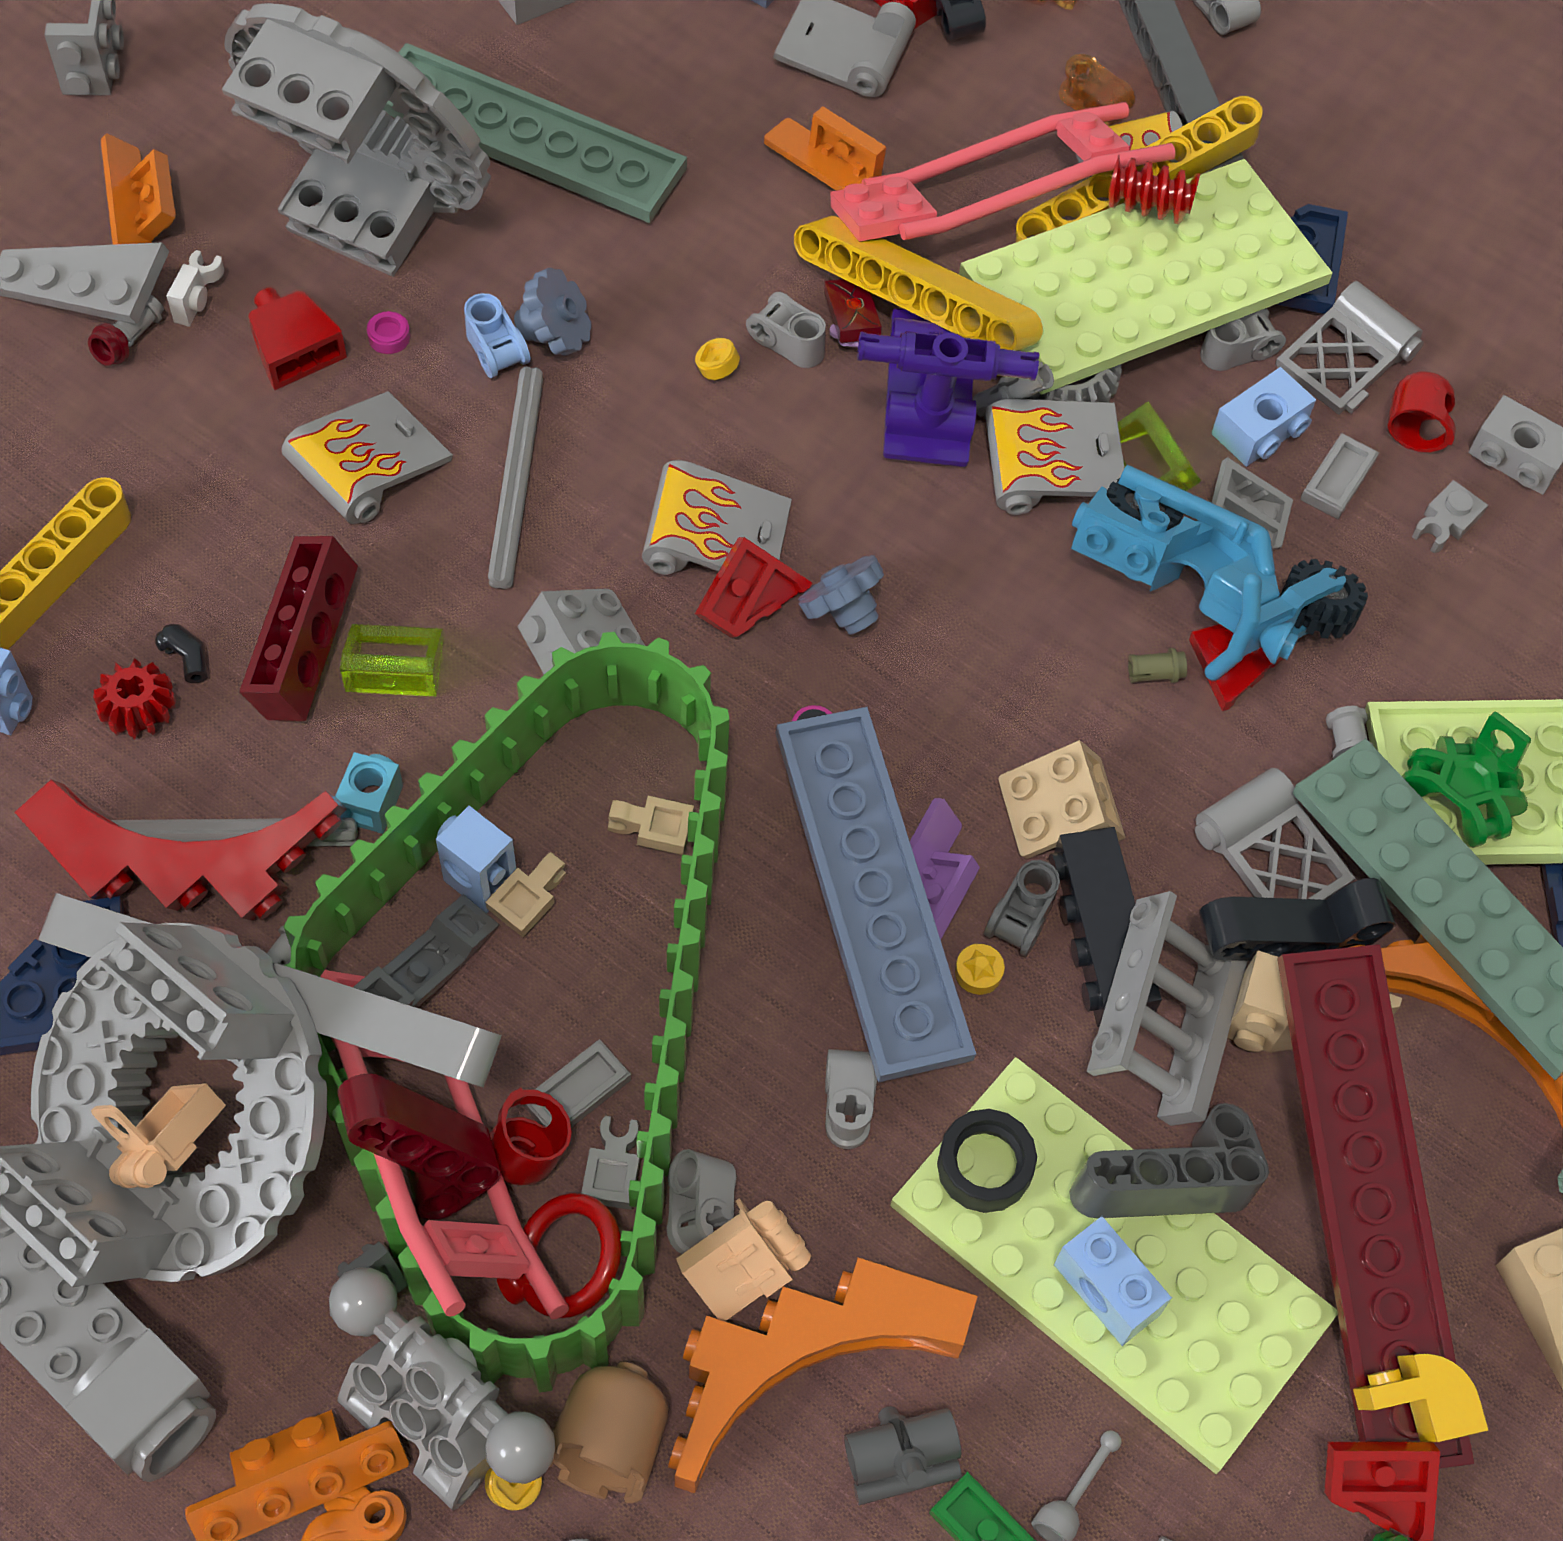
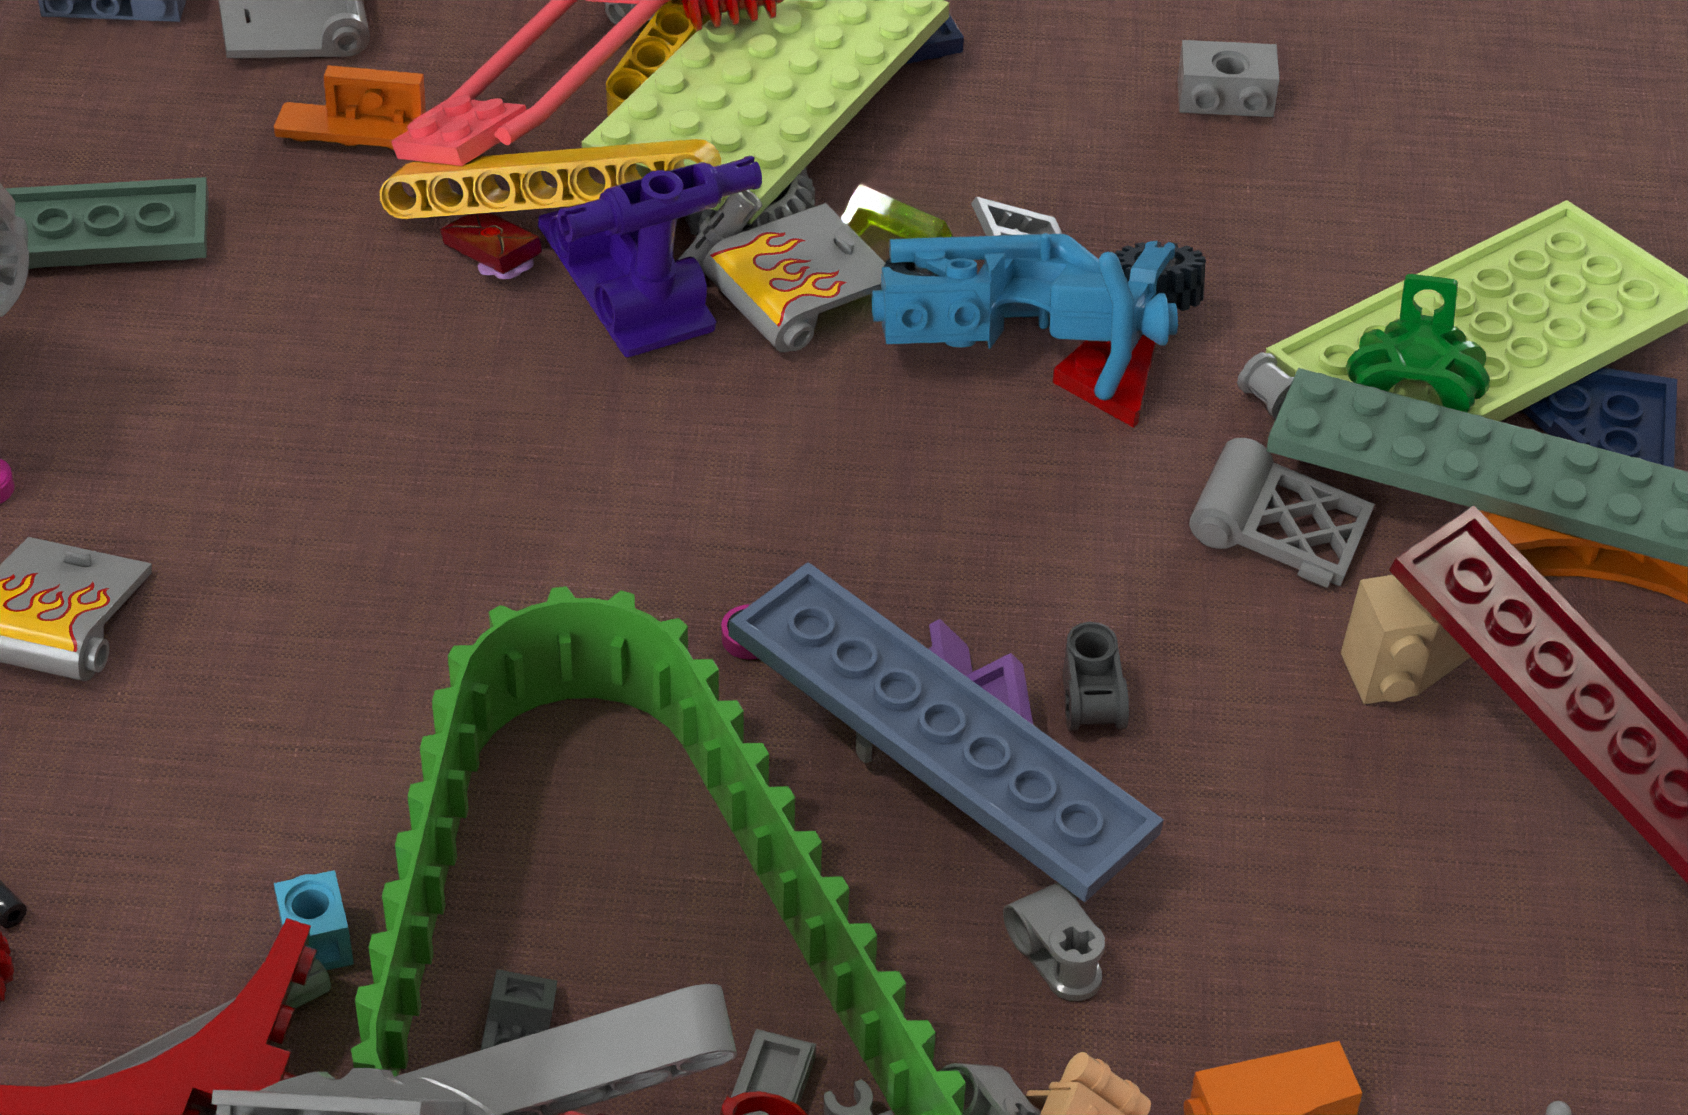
camera: 30 degrees left, 15 degrees down
(299, 628) = (111, 800): dark red brick -> none
(392, 673) = (244, 797): clear neon green tile -> none
(474, 856) = (493, 914): light blue brick -> none
(496, 339) = (114, 428): light blue piece -> none
(515, 478) = (243, 553): light grey axle -> none
(525, 898) = (569, 937): tan plate -> none
(554, 312) = (170, 376): sand blue plant -> none
(574, 622) = (410, 659): light grey bracket -> none
(659, 824) = (657, 792): tan plate -> none
(704, 513) = (495, 490): light grey door -> none
(717, 358) = (380, 345): yellow tile -> none
(748, 588) = (583, 532): red wing -> none
(789, 330) = (443, 283): light grey piece -> none
(845, 594) = (692, 488): sand blue plant -> none
(979, 969) = (1096, 752): yellow tile -> none
(996, 1124) = (1248, 951): black tyre -> none
(1058, 797) = (1047, 572): tan bracket -> none
(1099, 907) = (1188, 659): black brick -> none
(1112, 1280) = (1456, 951): light blue brick -> none
(1157, 666) = (1056, 407): olive pin -> none
(1206, 1022) = (1338, 675): light grey fence -> none
(1210, 1177) = (1455, 816): dark grey beam -> none
(1233, 1314) = (1428, 953): yellowish green plate -> none
(1241, 342) = (900, 107): light grey piece -> none
(1264, 417) = (974, 157): light blue brick -> none
(1288, 925) = (1329, 570): black beam -> none
(1339, 476) = (1081, 180): light grey tile -> none
(1372, 327) = (1009, 44): light grey piece -> none
(1418, 399) = (1110, 77): red helmet -> none
(1450, 514) = (1207, 167): light grey plate -> none

